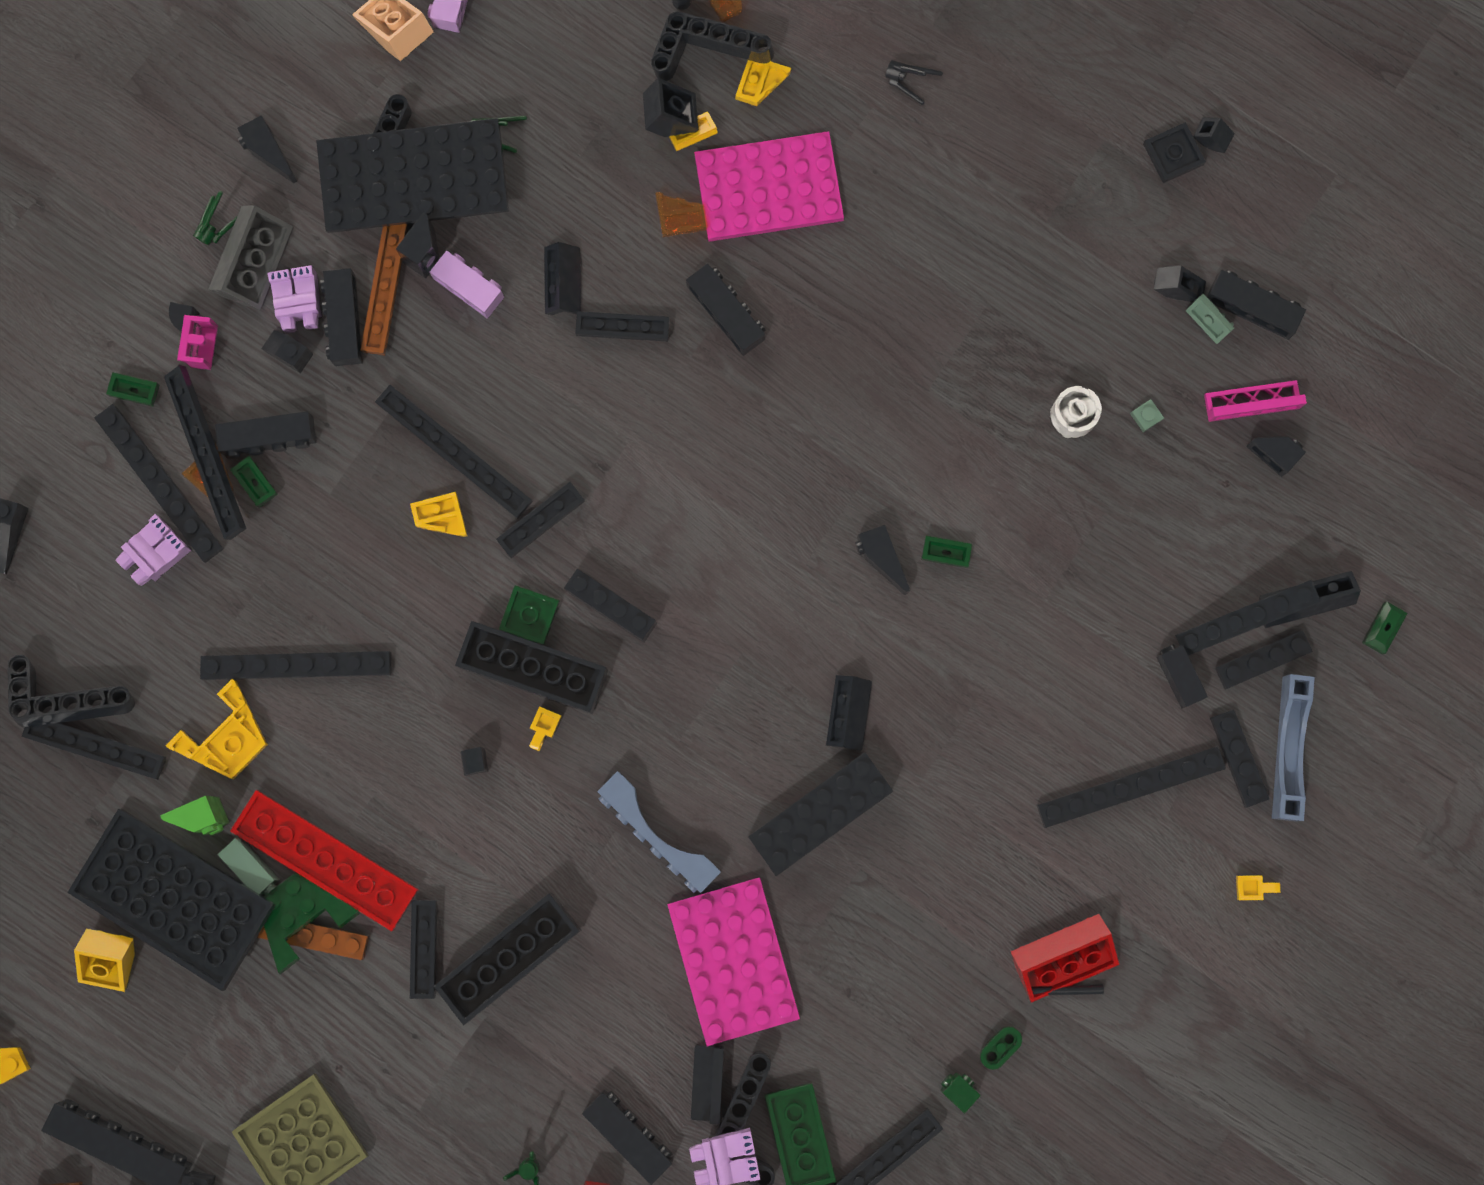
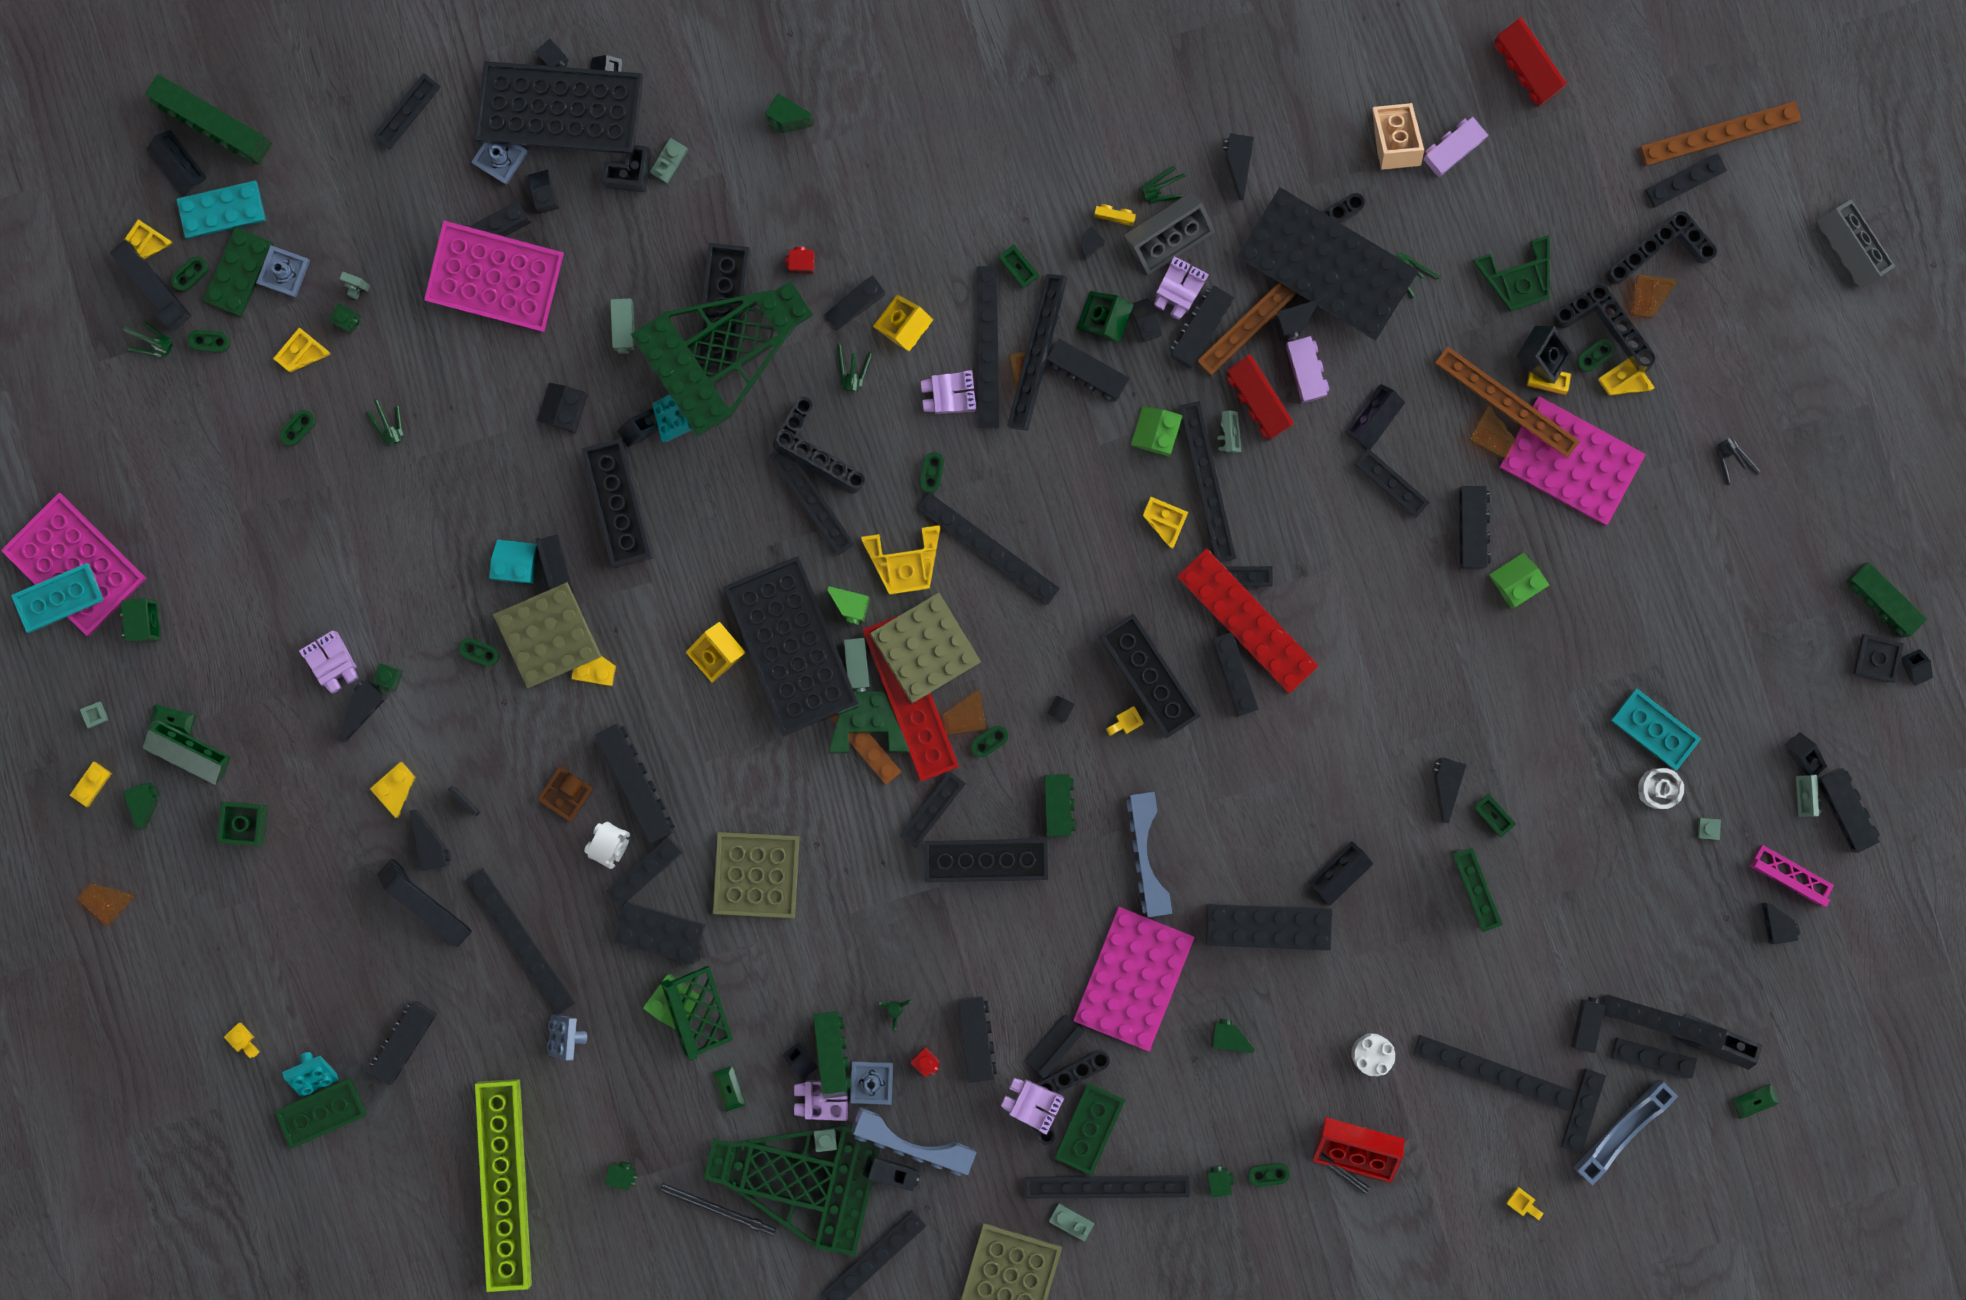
camera: 35 degrees right, 5 degrees up
(51, 609) = (850, 381): none -> dark green plant
(62, 519) = (903, 322): none -> yellow slope
(189, 278) = (1123, 216): none -> yellow plate
(189, 637) = (931, 472): none -> dark green plate
(197, 341) = (1089, 268): dark pink window -> none
(245, 473) = (1056, 387): dark green piece -> none
(246, 373) = (1105, 316): none -> dark green slope
(302, 803) = (925, 648): none -> olive plate
(371, 440) = (1156, 430): none -> bright green slope
(389, 836) = (965, 716): none -> clear orange wing
(430, 843) = (989, 741): none -> dark green plate
(437, 386) = (1230, 426): none -> sand green plate
(442, 339) = (1259, 397): none -> red slope
(529, 615) = (1174, 637): dark green plate -> none
(538, 852) = (1059, 805): none -> dark green brick
(584, 548) = (1247, 620): none -> red plate
(603, 67) = (1521, 284): none -> dark green wing
(670, 177) = (1507, 402): none -> dark orange plate
(716, 80) = (1595, 356): none -> dark green plate
(803, 325) = (1518, 580): none -> bright green slope
(864, 946) = (1229, 1037): none -> dark green slope
(982, 629) = (1477, 889): none -> dark green fence
(1008, 857) = (1373, 1054): none -> white brick
(1029, 363) = (1655, 729): none -> teal plate
(1140, 97) = (1886, 599): none -> dark green brick

